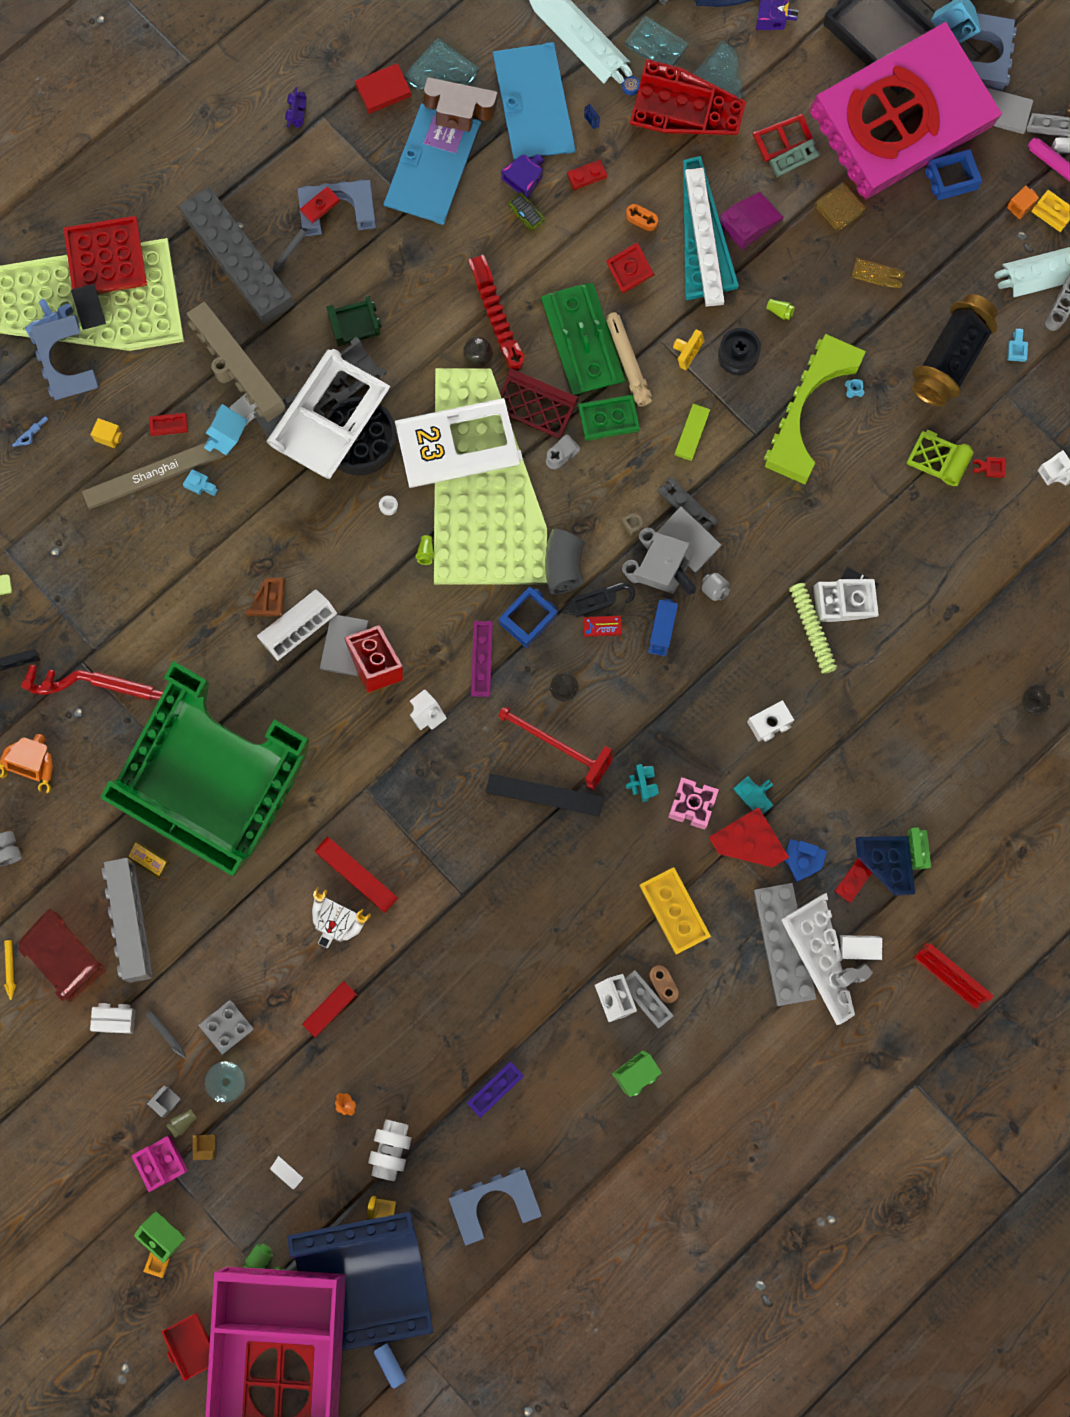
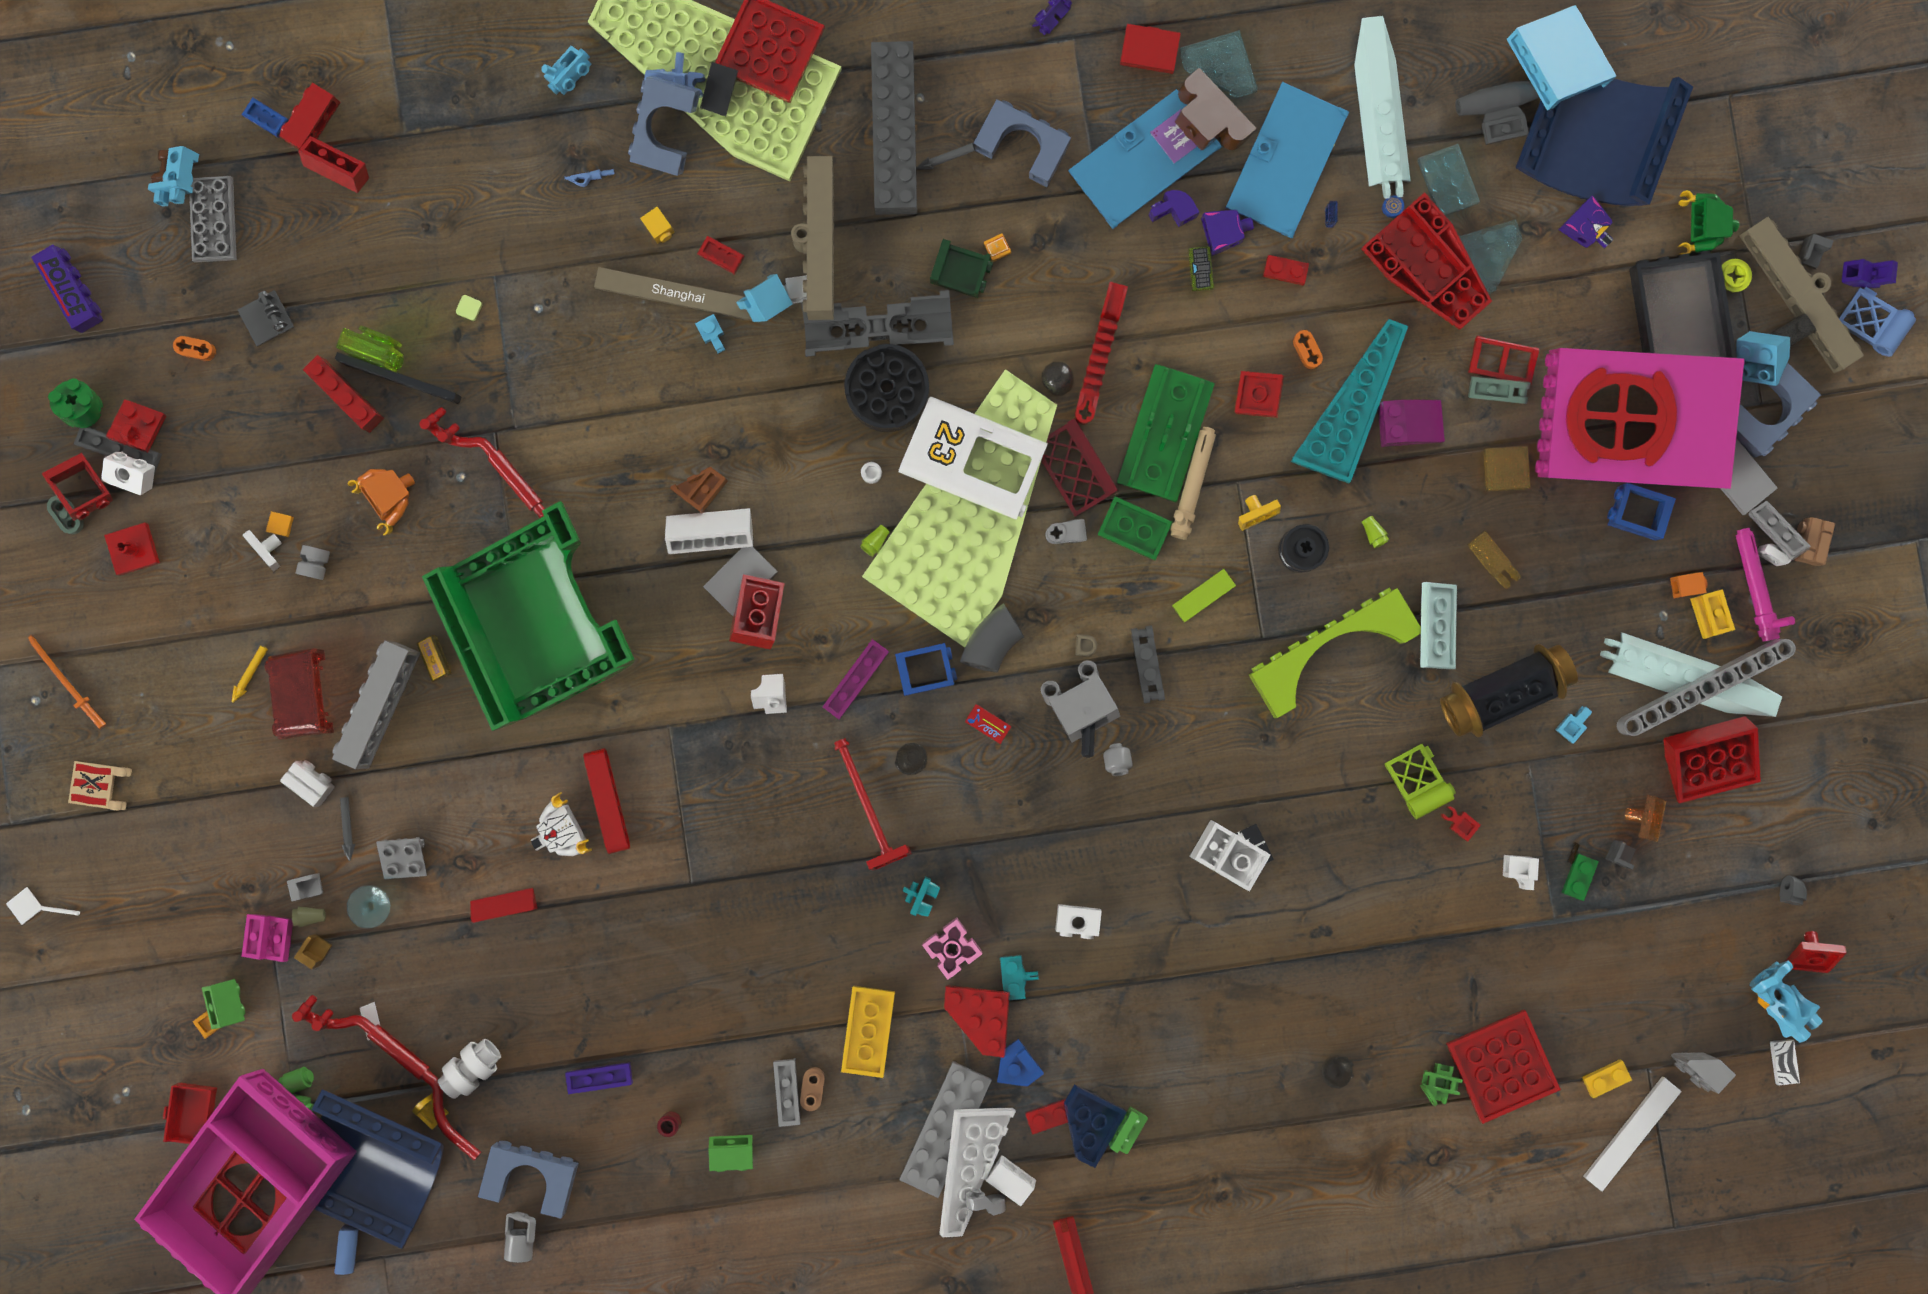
camera: 40 degrees right, 10 degrees up
(313, 438) = (840, 364): white piece -> none
(319, 205) = (1005, 131): red plate -> none
(322, 1179) = (399, 1054): none -> red piece
(345, 1104) = (460, 999): orange plant -> none
(369, 288) = (997, 247): none -> light orange tile
(478, 178) = (1178, 204): none -> dark purple brick
(523, 1261) = (519, 1241): none -> light grey piece
(544, 794) = (825, 844): black tile -> none
(574, 1078) = (664, 1128): none -> dark red brick
(597, 599) = (1001, 696): black plate -> none
(615, 998) = (759, 1074): white brick -> none
(662, 627) = (1040, 766): blue window -> none
(687, 529) = (1129, 694): light grey tile -> none
(704, 237) = (1352, 411): white plate -> none
(813, 629) = (1180, 861): yellowish green piece -> none
(854, 383) = (1394, 657): medium azure plate -> none
(873, 341) = (1438, 626): none -> light aqua tile

